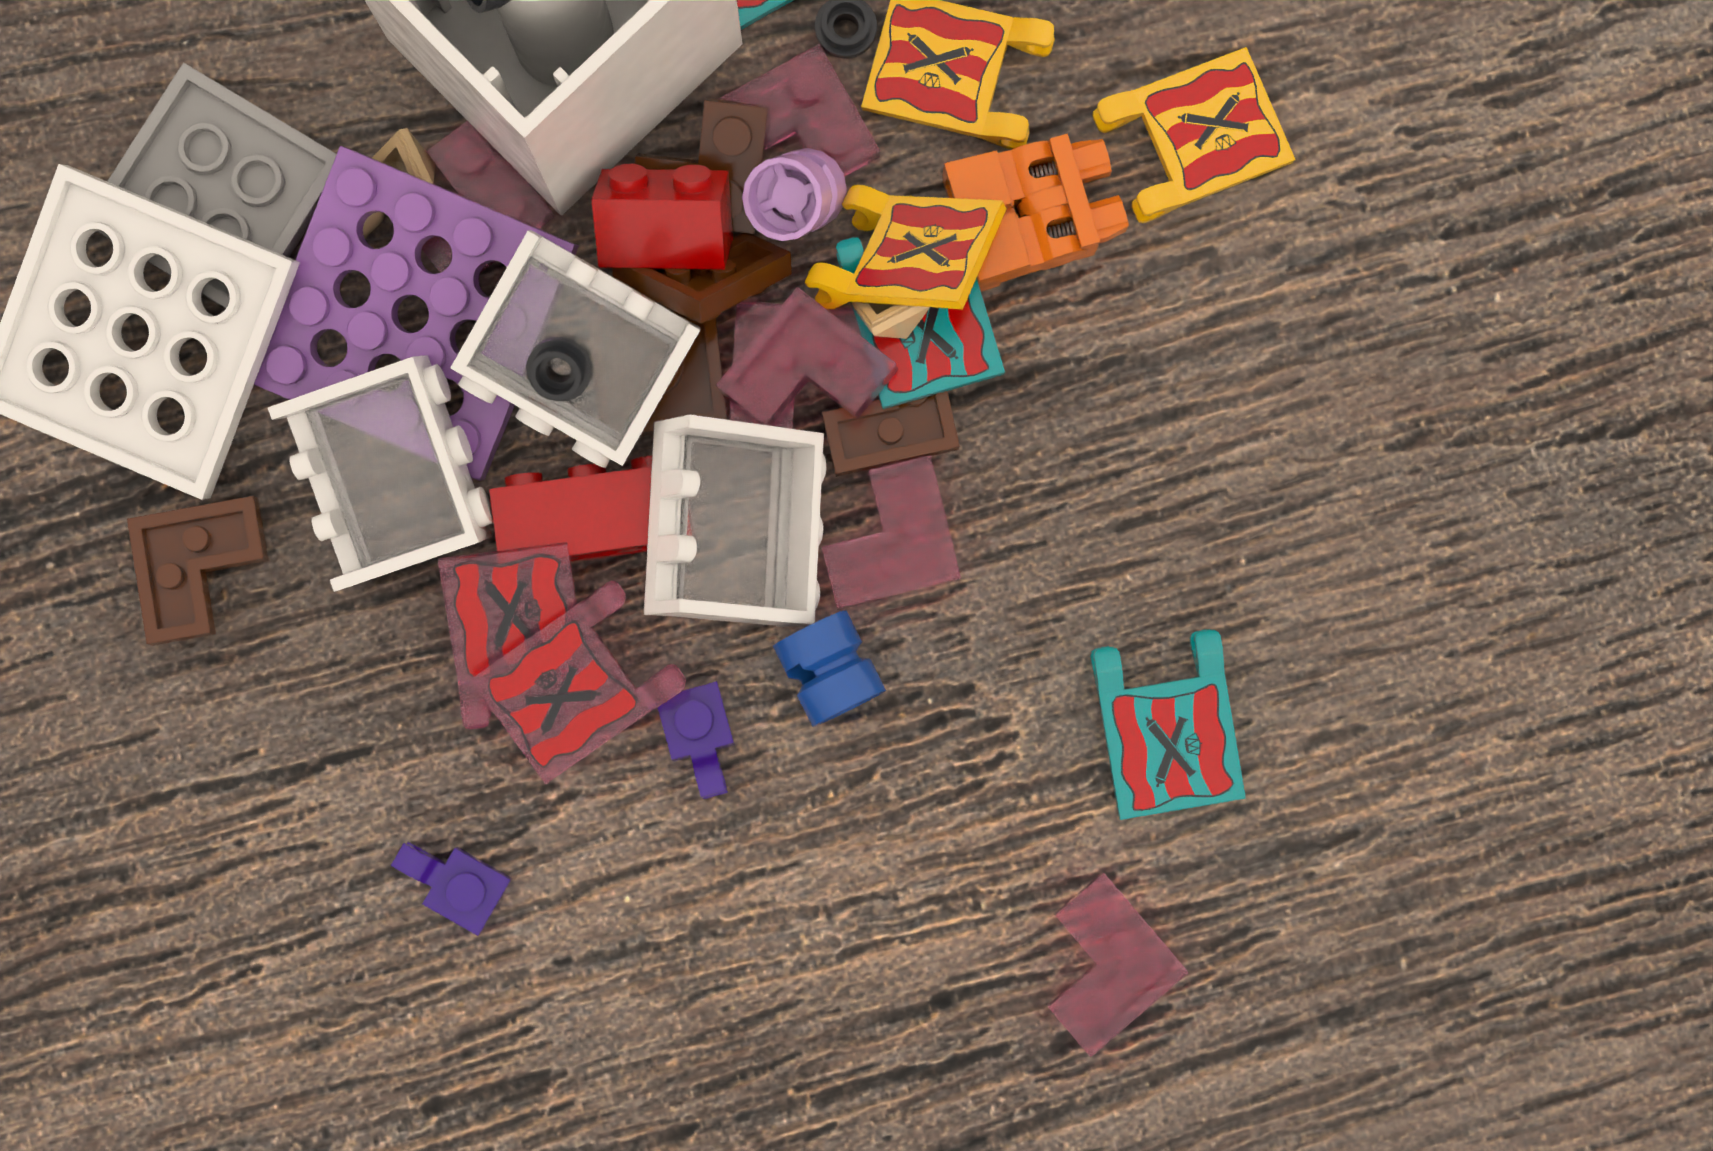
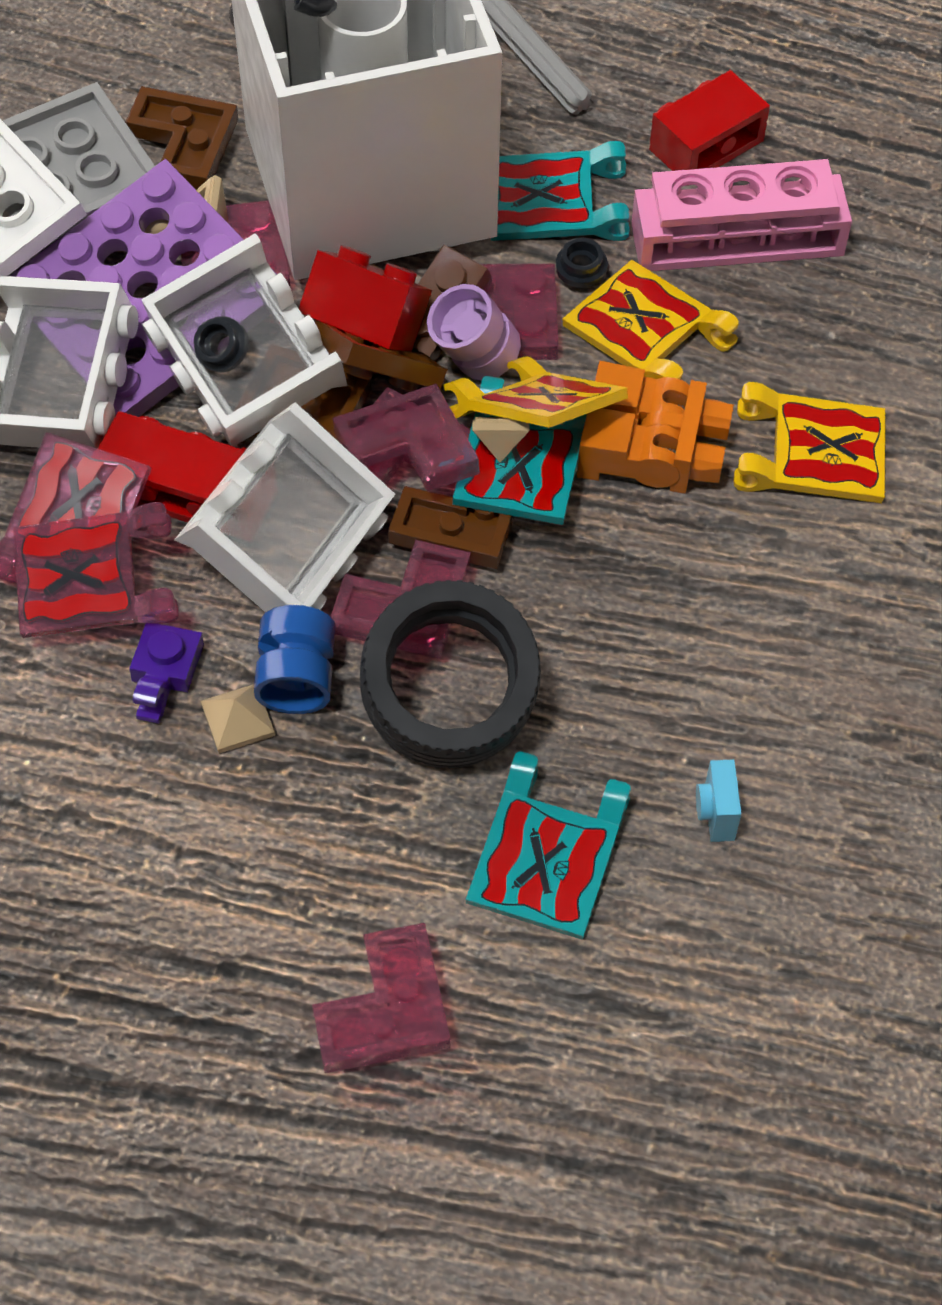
camera: 30 degrees right, 25 degrees down
(323, 61) = (190, 125): none -> reddish brown plate
(800, 749) = (237, 719): none -> tan slope
(1059, 657) = (447, 604): none -> black tyre
(1306, 600) = (720, 801): none -> medium azure plate

